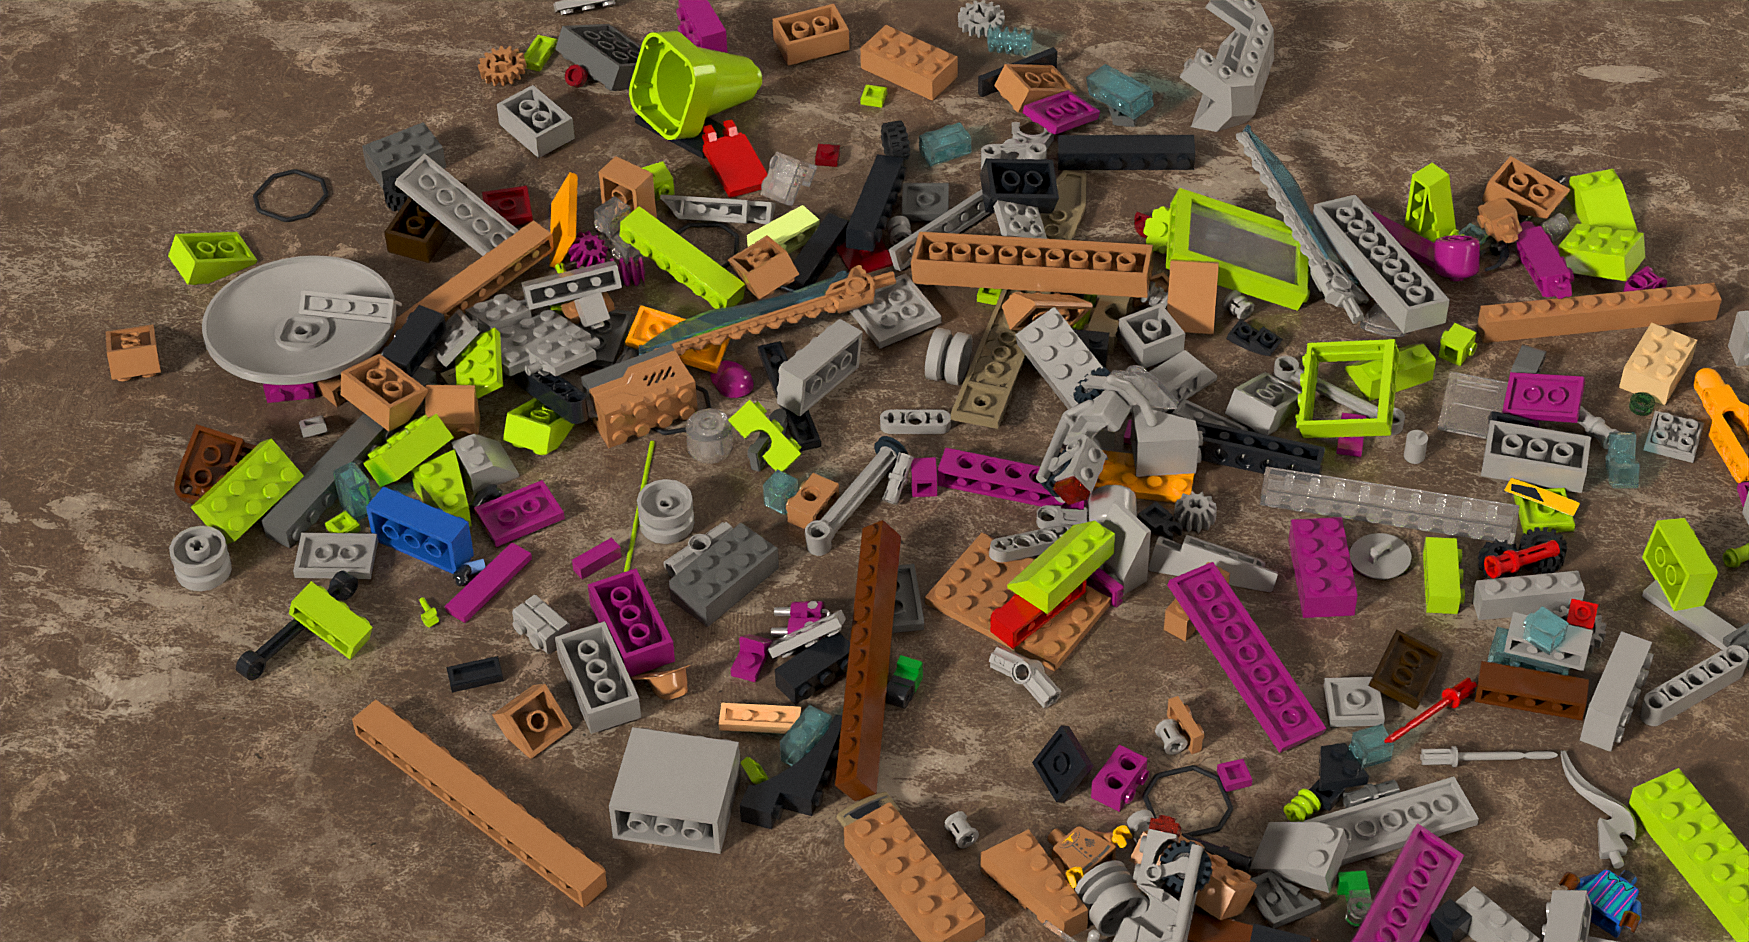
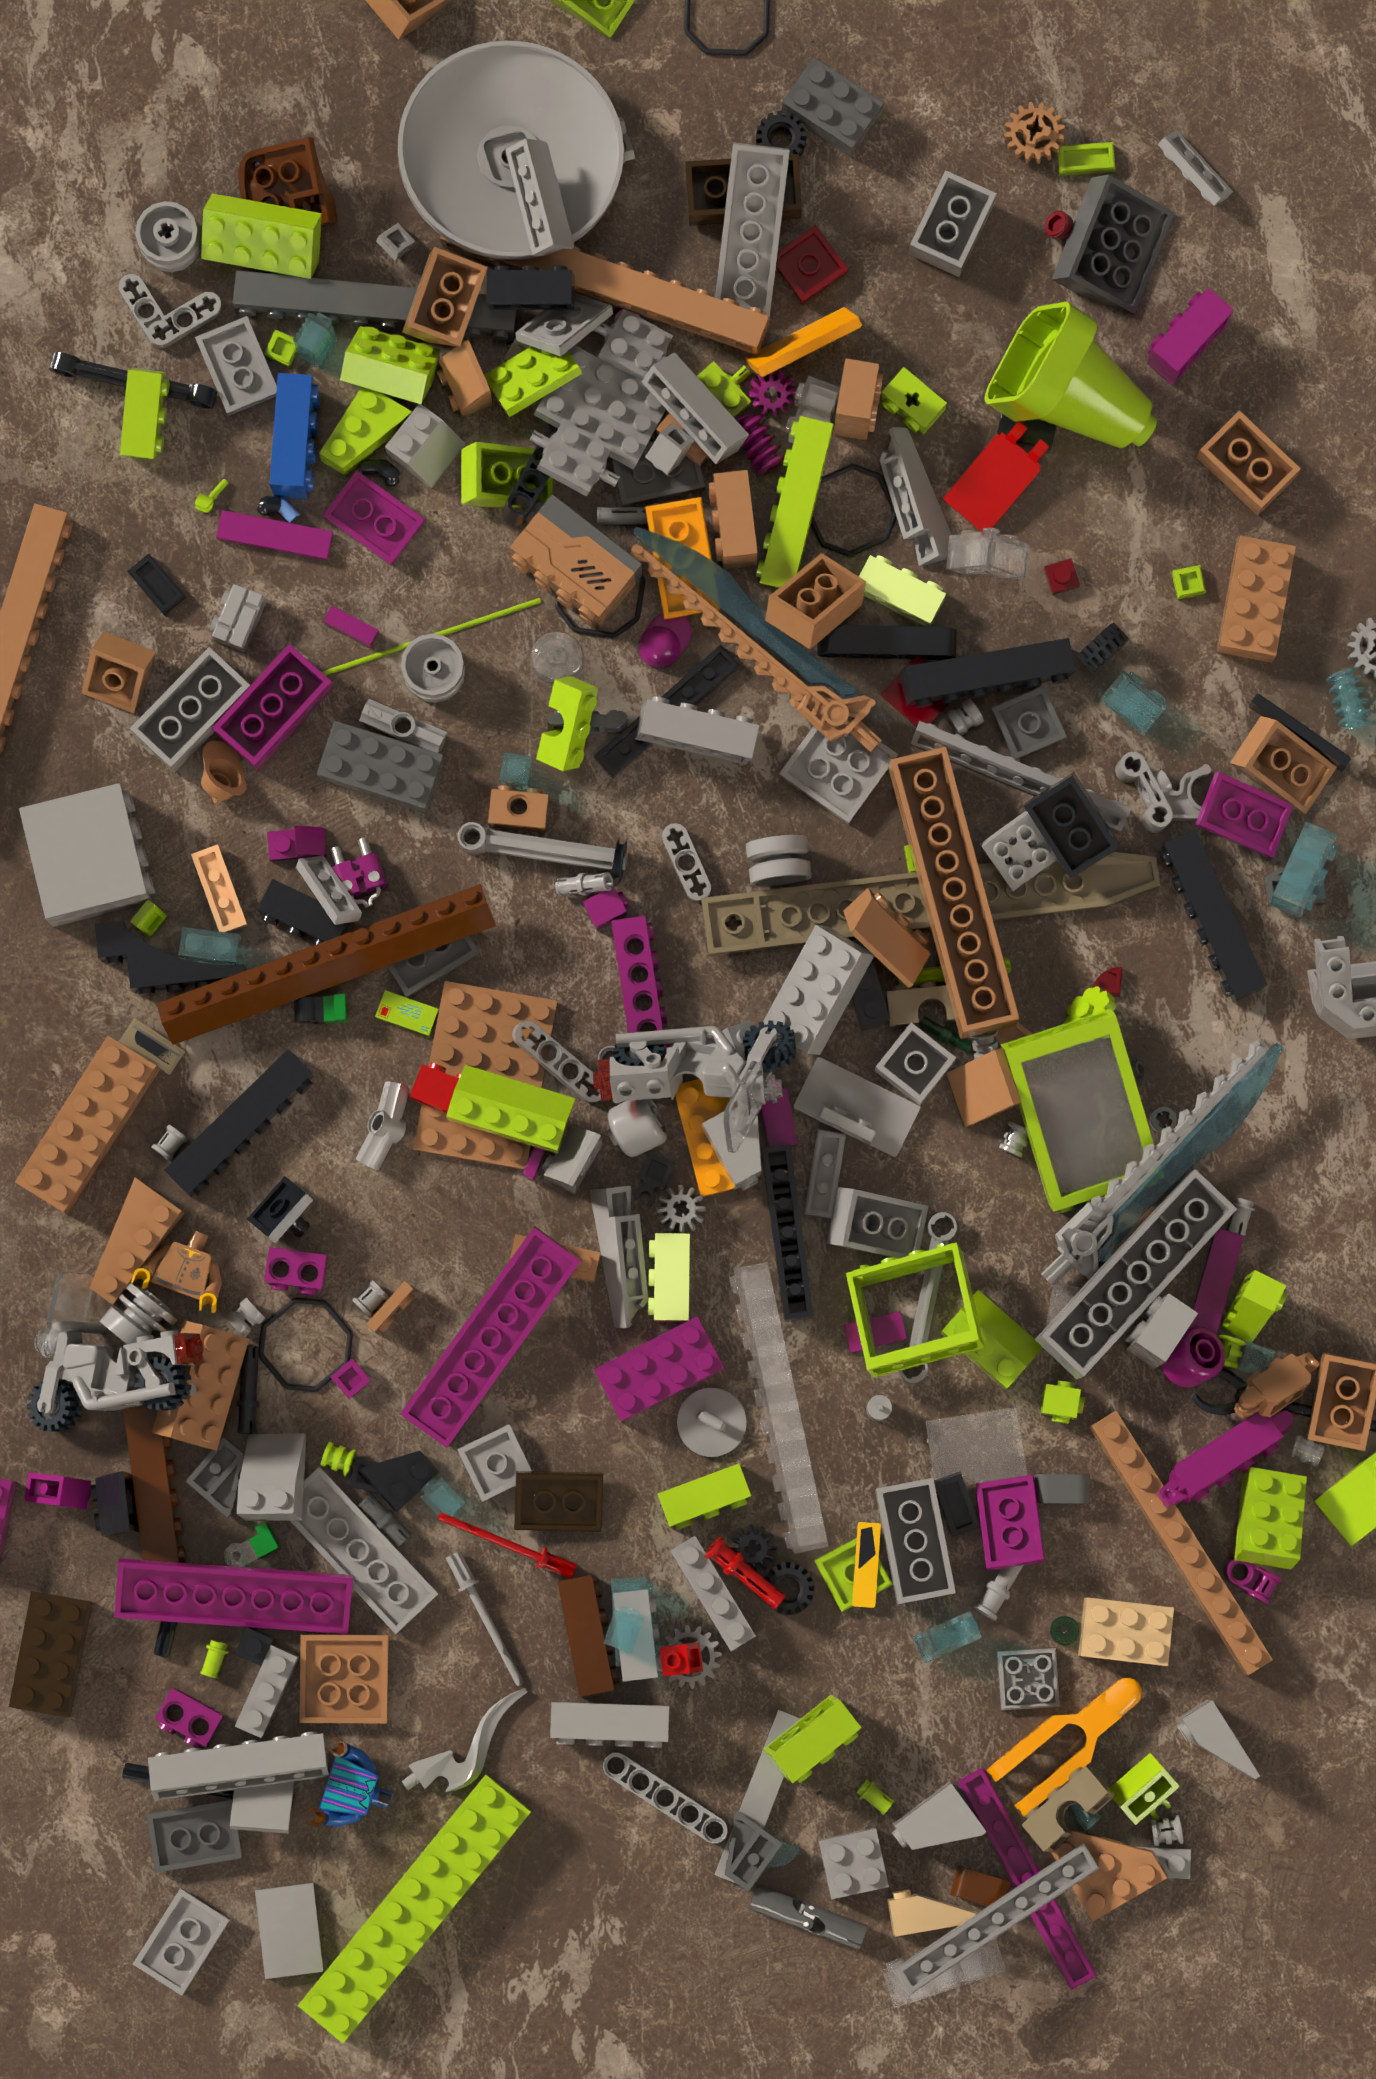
camera: 65 degrees right, 35 degrees up
(262, 594) = (159, 321): none -> light grey beam
(669, 292) = (733, 520): none -> medium nougat brick
(937, 633) = (407, 1013): none -> lime tile
(971, 774) = (239, 1123): none -> black brick
(1249, 338) = (975, 1175): black slope -> none
(1249, 535) = (670, 1277): none -> yellowish green brick
(1436, 242) = (1161, 1331): none -> light grey brick
(1505, 871) = (344, 1679): none -> medium nougat plate

